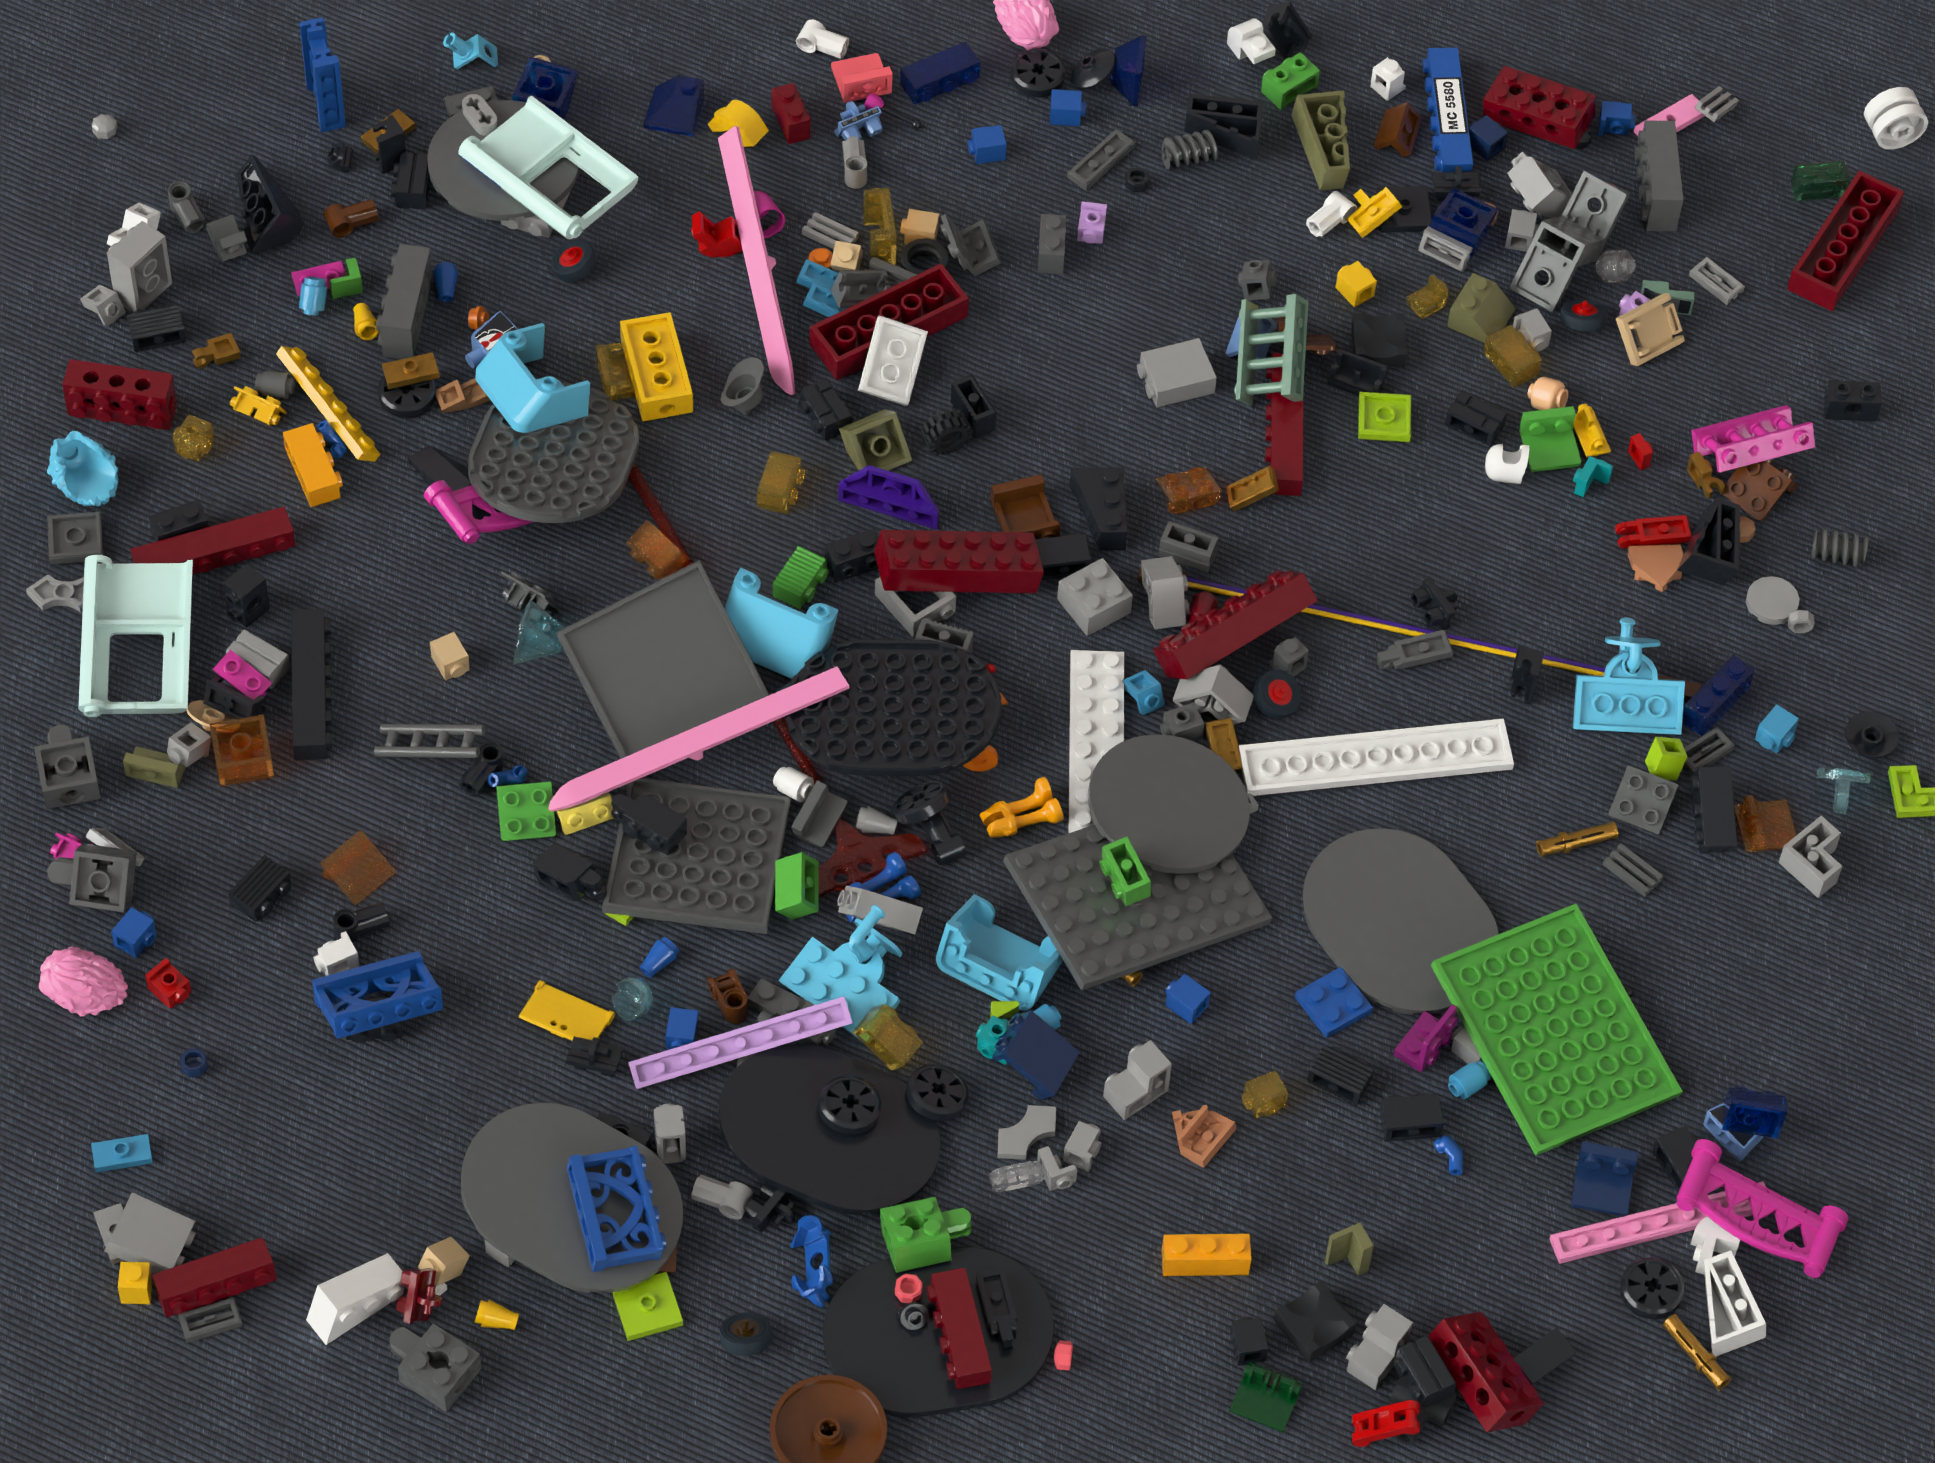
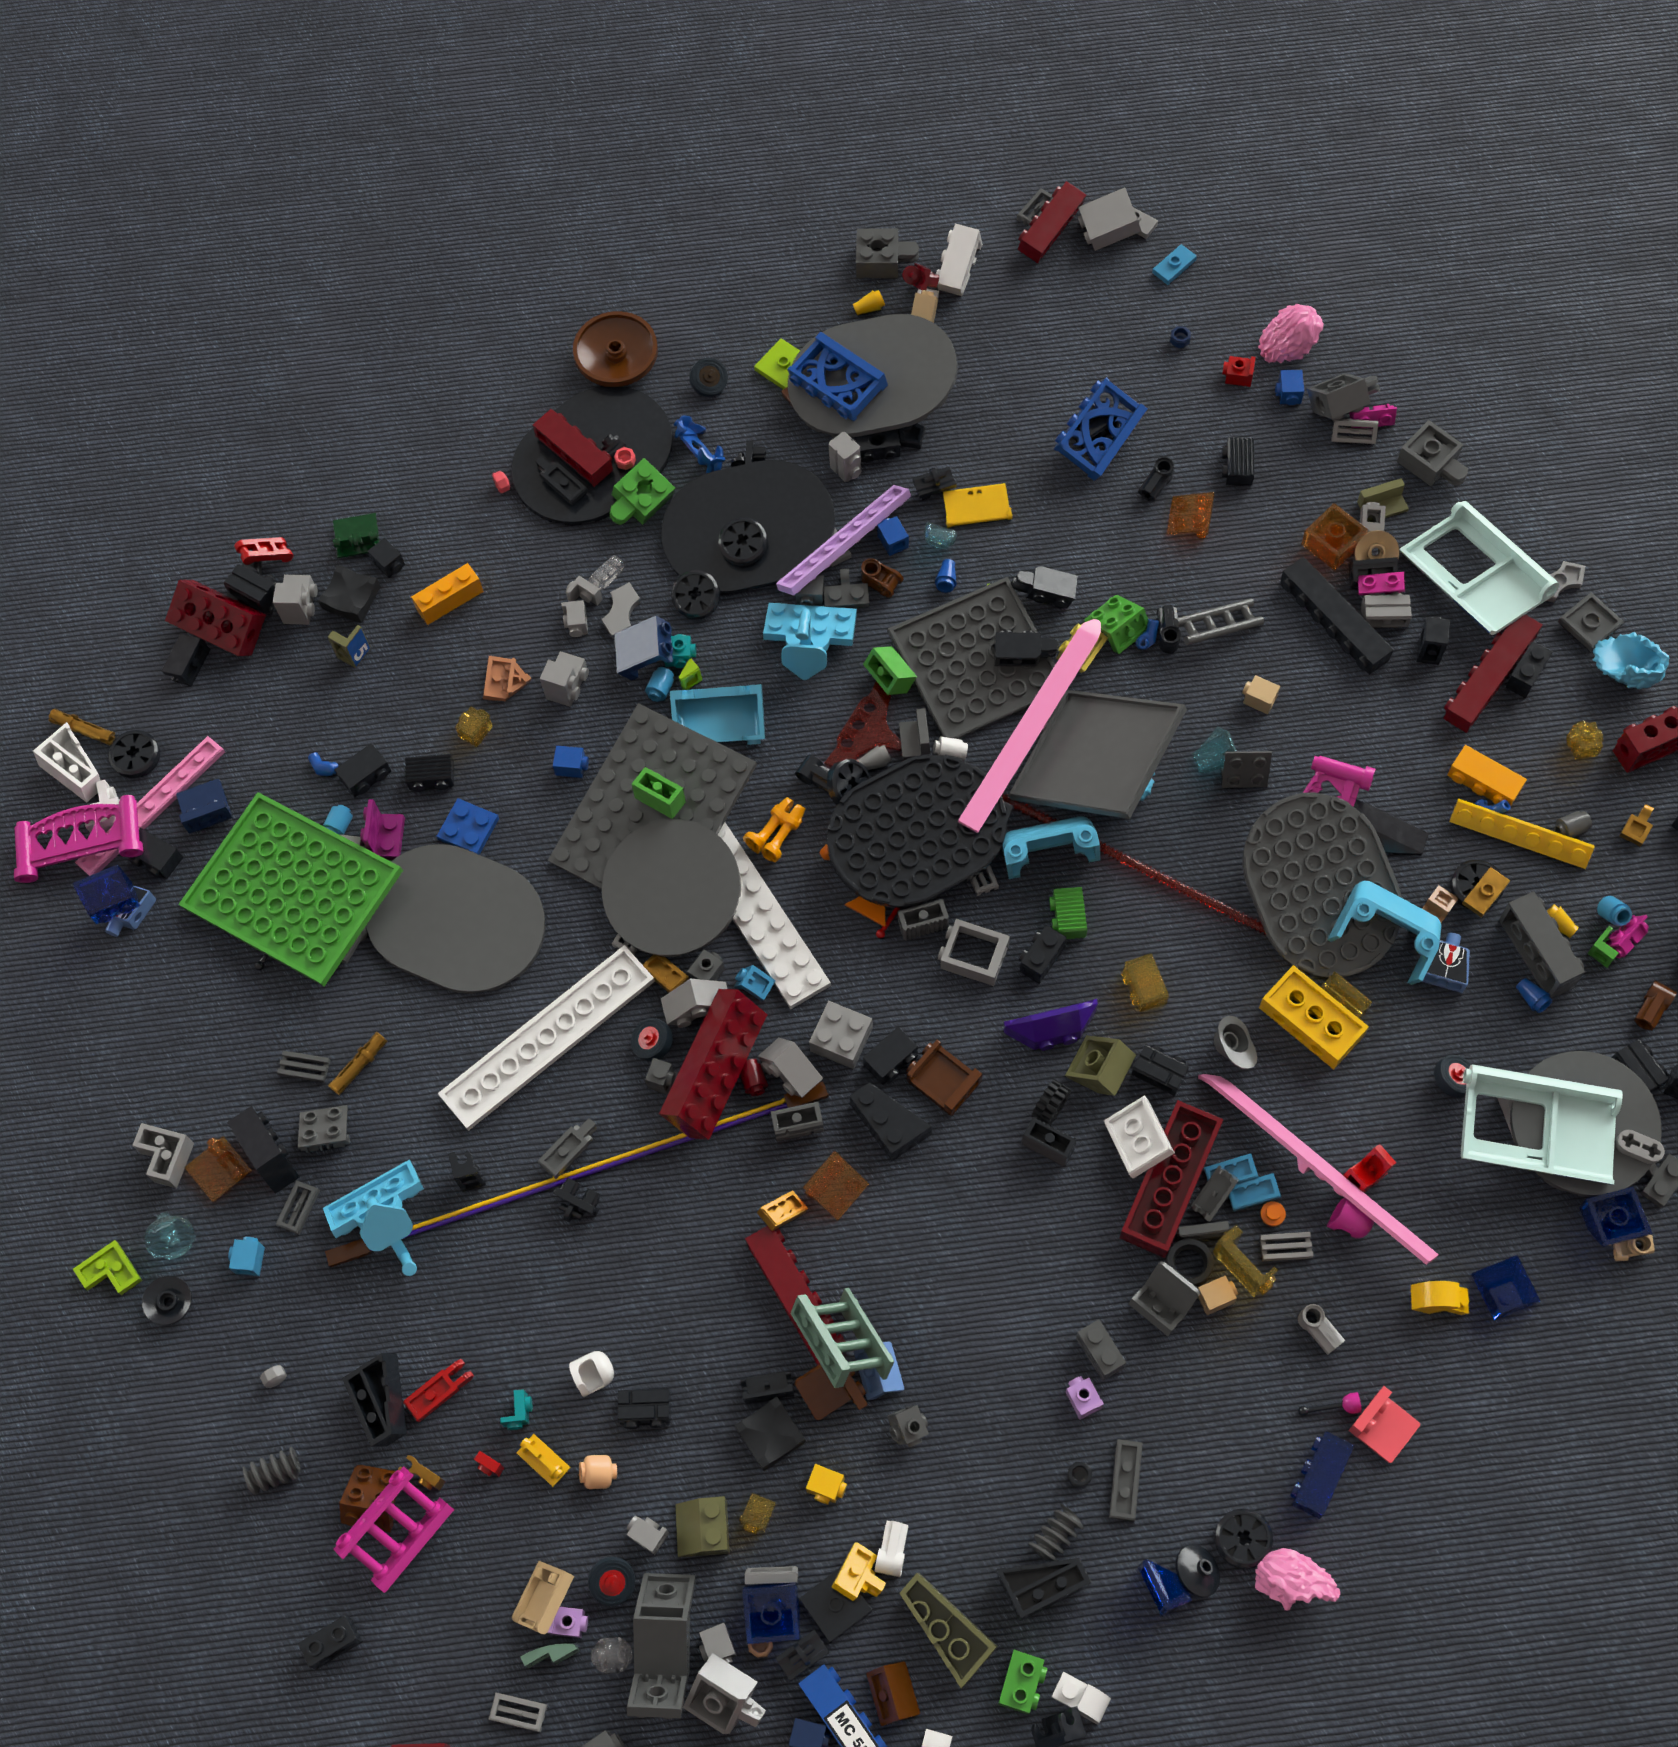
camera: 155 degrees right, 10 degrees up
(135, 1282) = (1095, 189): yellow brick -> none
(266, 411) = (1560, 804): yellow hinge -> none
(337, 956) = (1151, 449): white brick -> none
(477, 317) = (1481, 978): orange plate -> none
(656, 550) = (1185, 863): clear orange brick -> none
(728, 1198) = (787, 450): light grey piece -> none
(791, 113) = (1408, 1340): dark red brick -> none
(816, 37) = (1451, 1441): white piece -> none
(846, 256) = (1250, 1218): tan brick -> none
(856, 118) = (1352, 1373): medium blue hips -> none
(888, 1036) = (751, 603): clear yellow brick -> none
(894, 869) = (842, 693): blue piece -> none
(898, 914) = (824, 689): light grey window -> none
(958, 561) = (956, 982): dark red brick -> none
(987, 144) = (1228, 1423): blue brick -> none
(1066, 107) = (1190, 1511): blue brick -> none
(1177, 373) = (914, 1288): light grey brick -> none
(1384, 417) = (721, 1360): lime plate -> none
(1512, 356) = (649, 1495): clear yellow brick -> none
(1550, 439) = (569, 1423): bright green bracket -> none
(1656, 563) = (420, 1359): nougat slope -> none
(1666, 758) = (319, 1167): lime brick -> none
(1717, 695) = (307, 1257): clear blue brick -> none
(1747, 529) = (363, 1446): medium nougat tile -> none
(1772, 600) = (308, 1387): light grey tile -> none

